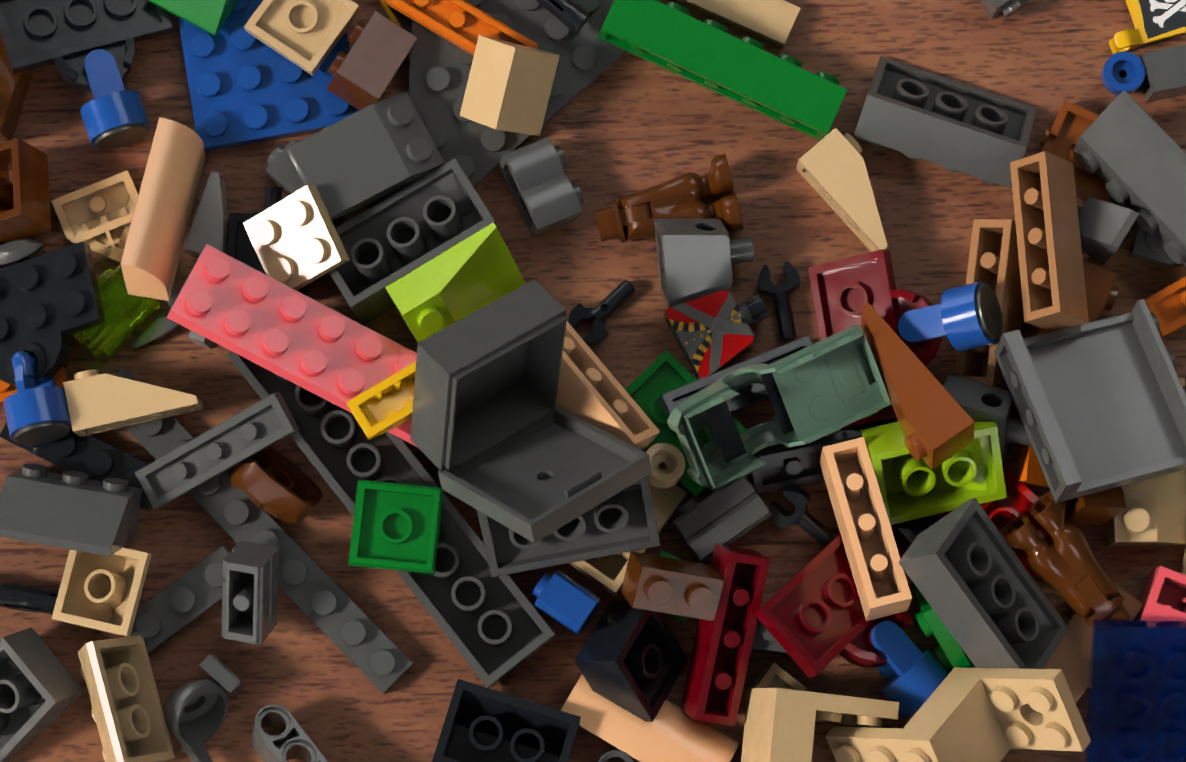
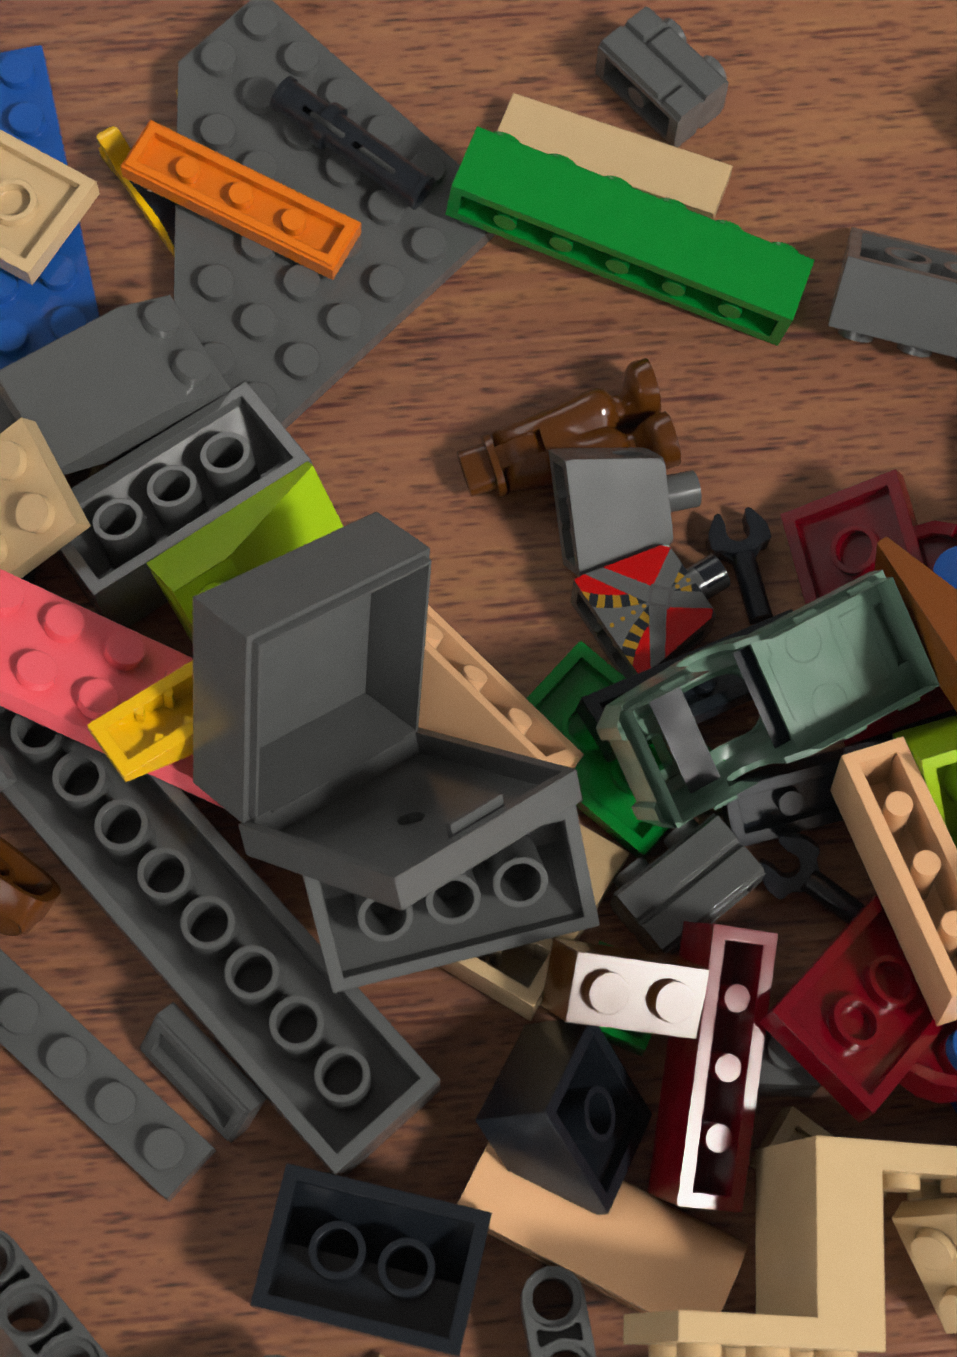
camera: 10 degrees left, 10 degrees down
(372, 61) = (117, 257): reddish brown brick -> none
(396, 527) = (175, 922): green plate -> none
(407, 617) = (202, 1072): none -> dark grey tile
(509, 86) = (322, 275): tan slope -> none
(541, 187) = (376, 421): dark grey brick -> none
(565, 601) = (454, 1028): blue brick -> none
(601, 312) = (478, 596): black bar -> none
(666, 465) = (600, 808): tan tile -> none
(843, 182) = (820, 393): tan slope -> none

